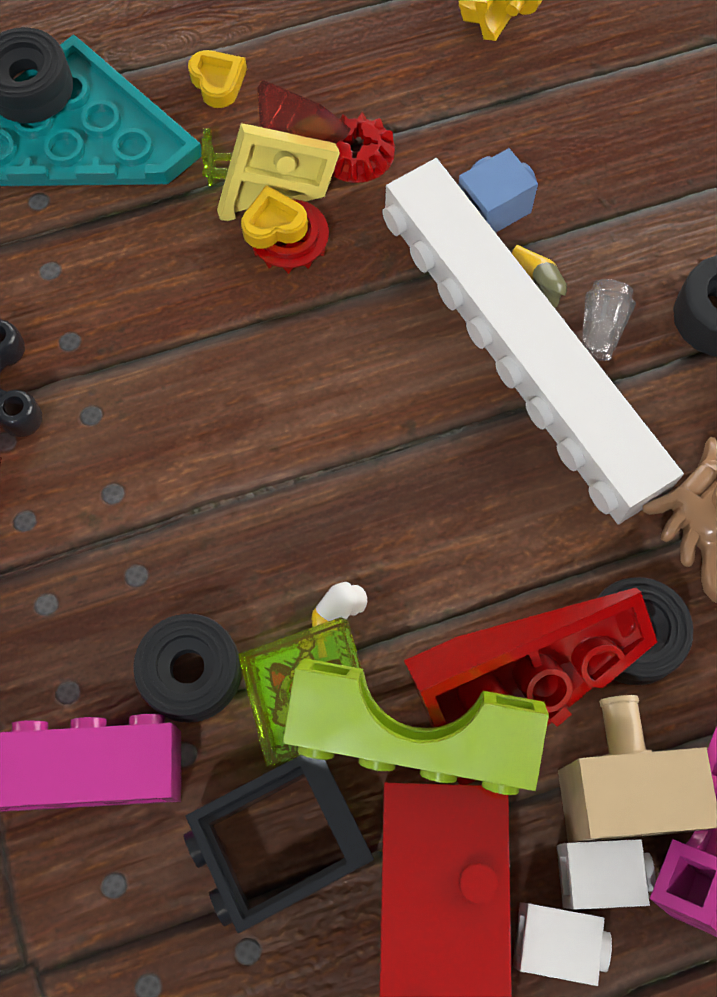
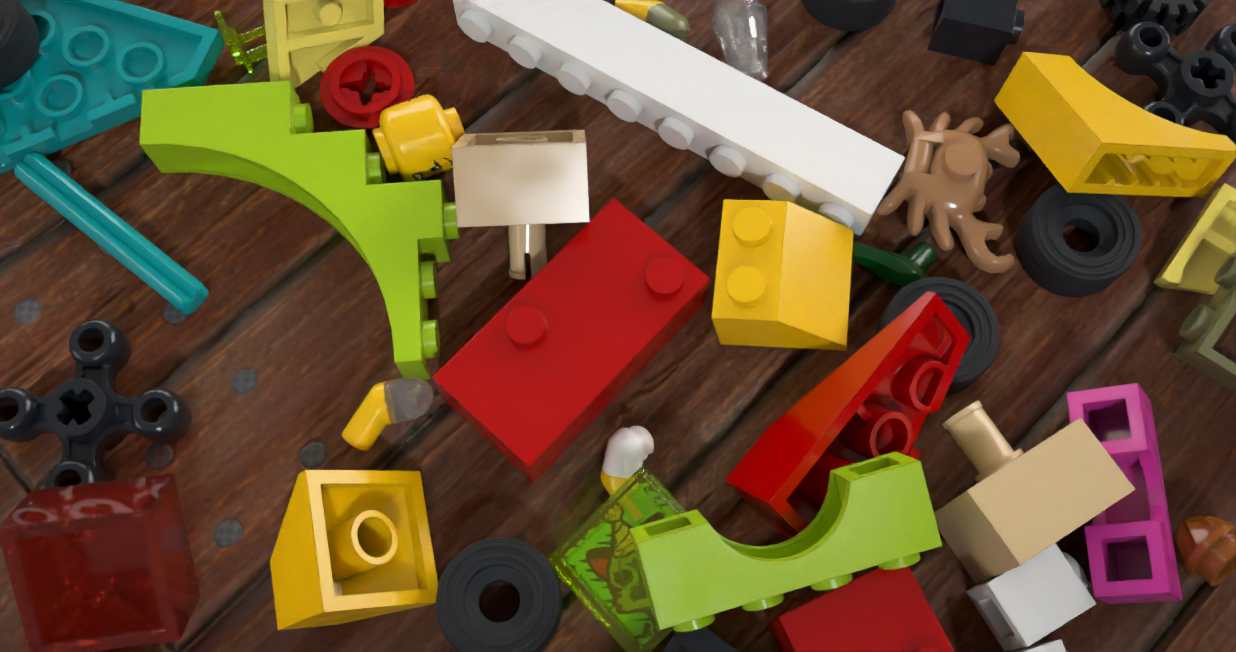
camera: 30 degrees left, 0 degrees up
(52, 264) = (111, 233): none -> teal axle
(103, 574) = (352, 548): none -> yellow slope
(182, 481) = (385, 405): none -> arm
(196, 242) = (270, 140): none -> lime arch
(273, 219) = (344, 78): yellow tile -> none
(306, 289) = (418, 138): none -> yellow head
(345, 495) = (572, 339): none -> red brick
(363, 359) = (521, 184): none -> tan brick
(532, 523) = (782, 277): none -> yellow slope
(628, 555) = (893, 266): none -> dark green bar

